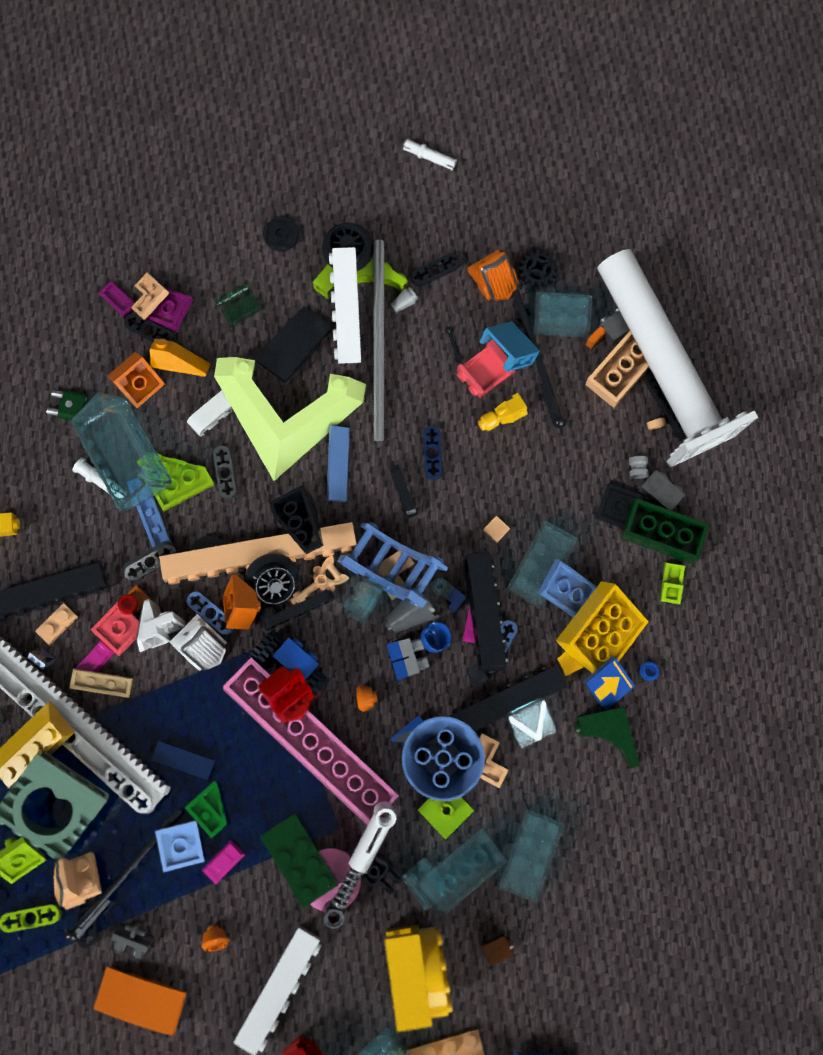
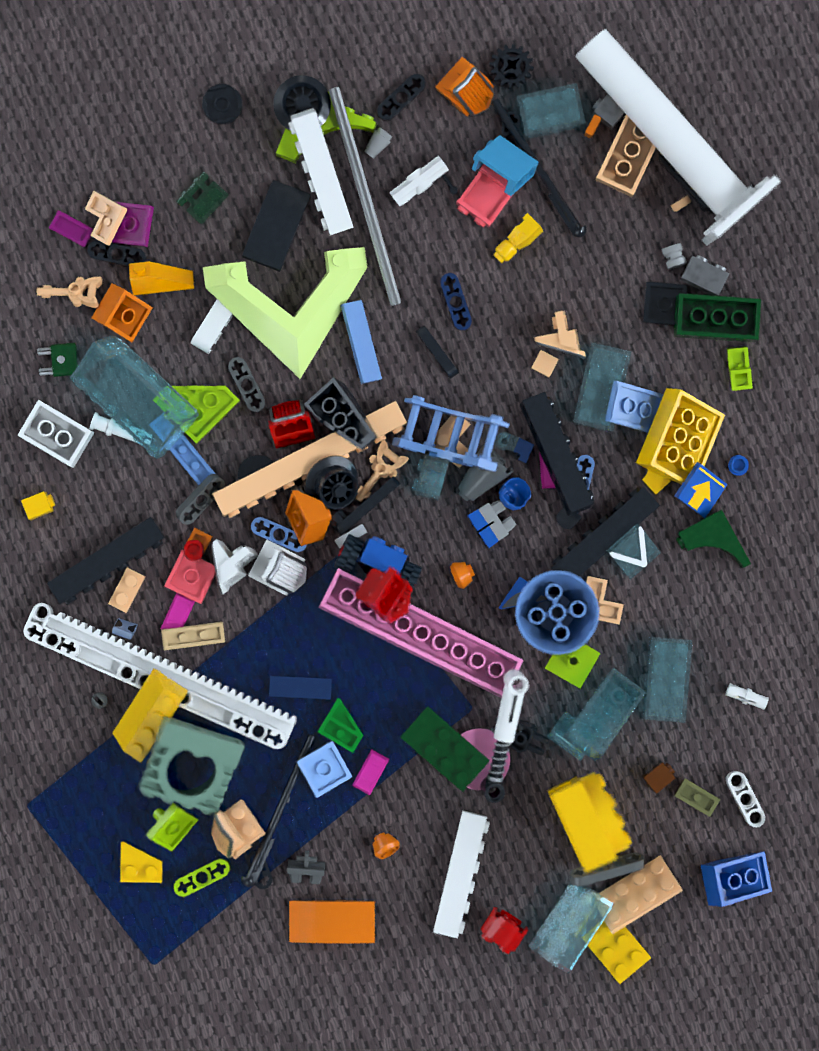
camera: 15 degrees left, 10 degrees up
(40, 466) = (55, 434): none -> white brick
(102, 351) = (75, 291): none -> light nougat piece
(251, 517) = (290, 424): none -> red piece
(282, 631) = (357, 532): none -> white sticker
(430, 341) = (419, 181): none -> white piece
(443, 1030) = (620, 866): none -> dark grey beam
(519, 510) = (564, 340): none -> light nougat piece
(528, 981) = (697, 797): none -> olive plate
(581, 1005) = (752, 806): none -> white beam
(602, 894) = (747, 696): none -> white pin

